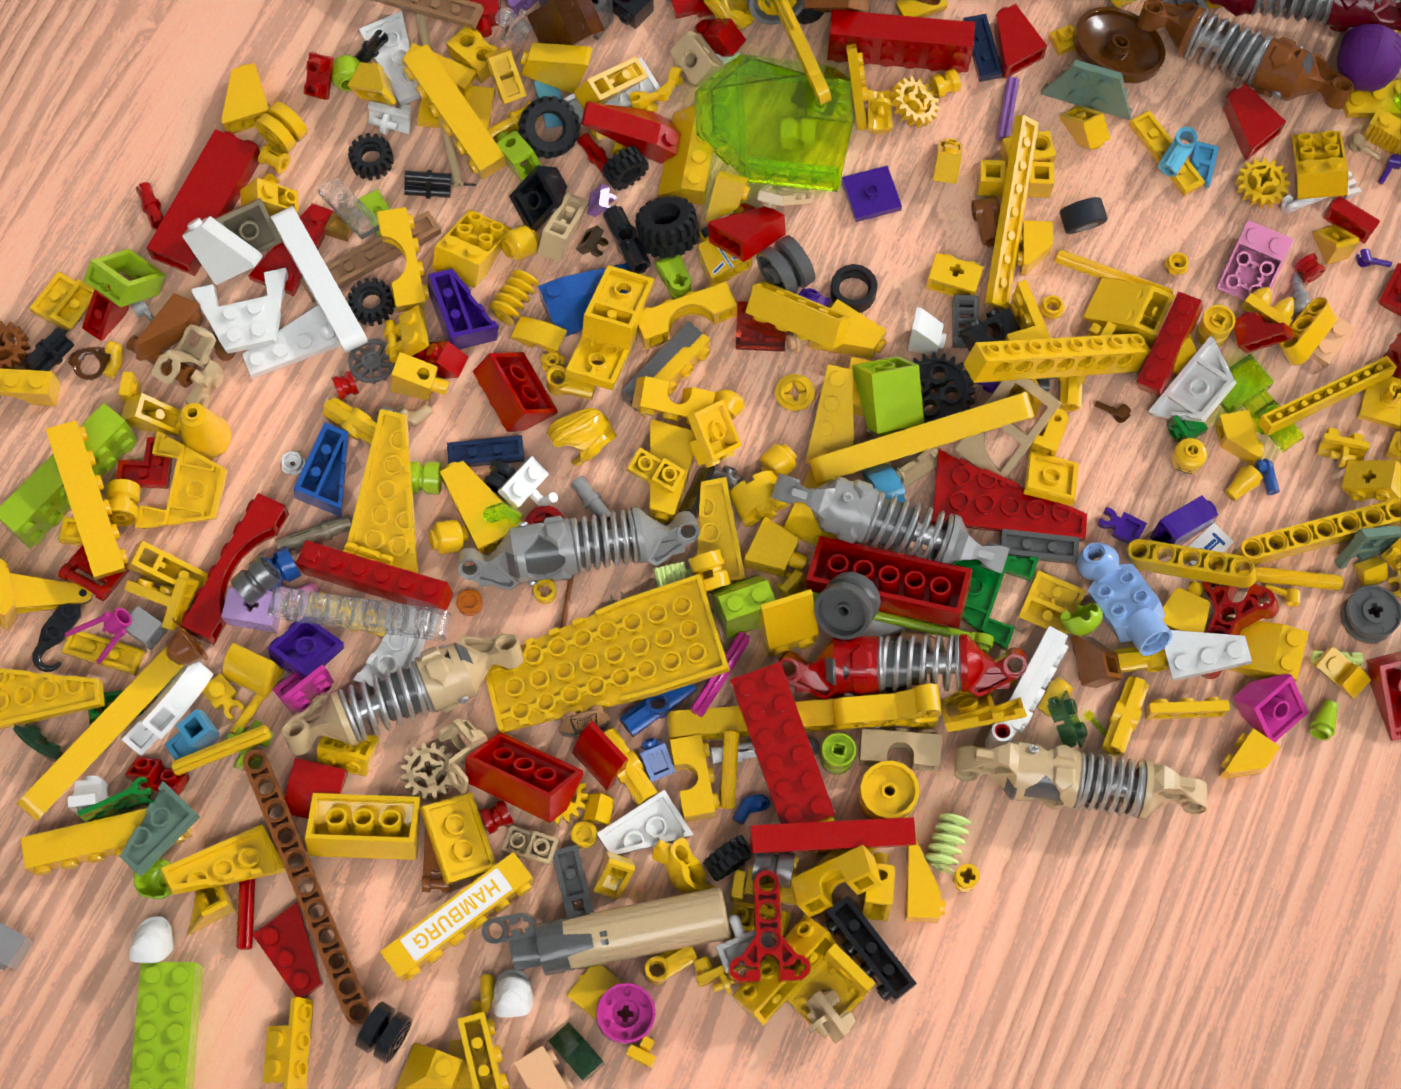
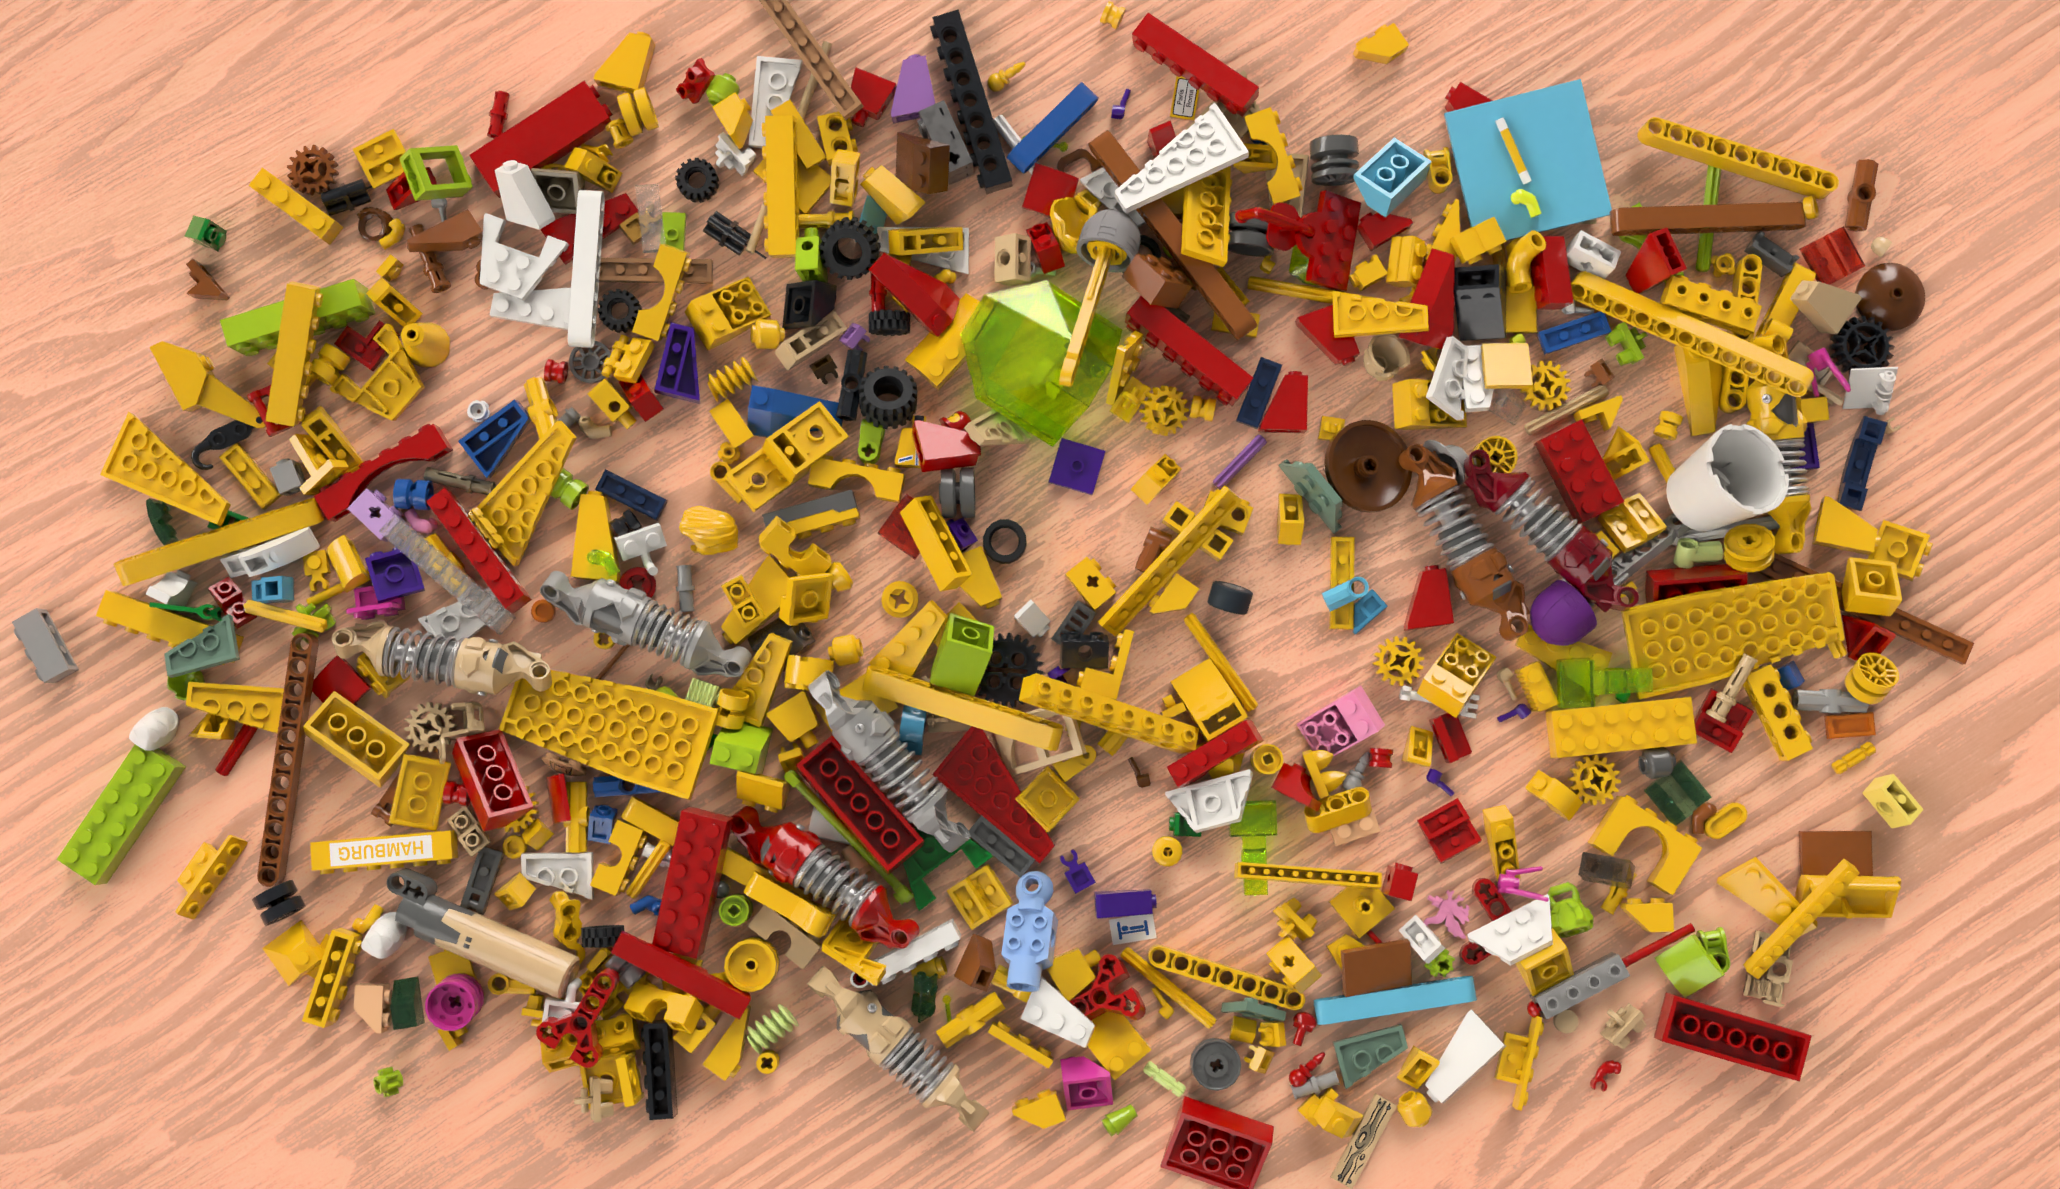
camera: 35 degrees right, 15 degrees up
(113, 623) = (263, 464): dark pink plant -> none
(184, 648) = (303, 519): dark orange piece -> none
(185, 353) = (450, 269): tan piece -> none
(205, 384) = (445, 304): tan plate -> none
(260, 576) = (384, 500): flat silver wheel -> none
(290, 951) = (250, 797): red wing -> none
(371, 48) = (753, 83): black axle -> none
(447, 537) = (556, 549): yellow head -> none
(514, 28) = (879, 126): clear hips -> none
(514, 390) = (683, 459): red slope -> none
(642, 99) = (962, 274): yellow piece -> none
(715, 683) = (703, 785): dark pink axle -> none
(727, 195) = (952, 400): yellow slope -> none
(847, 605) = (808, 809): dark grey wheel -> none
(1054, 301) = (1159, 657): yellow plate -> none
(1083, 621) = (985, 929): lime hair -> none
(1180, 259) = (1278, 691): yellow plate -> none
(1200, 571) = (1104, 950): yellow beam -> none
(1239, 437) = (1219, 859): yellow slope -> none
(1244, 482) = (1195, 898): yellow cone -> none
(1267, 469) = (1221, 904): blue arm -> none
(1342, 672) = (1158, 1093): yellow slope -> none

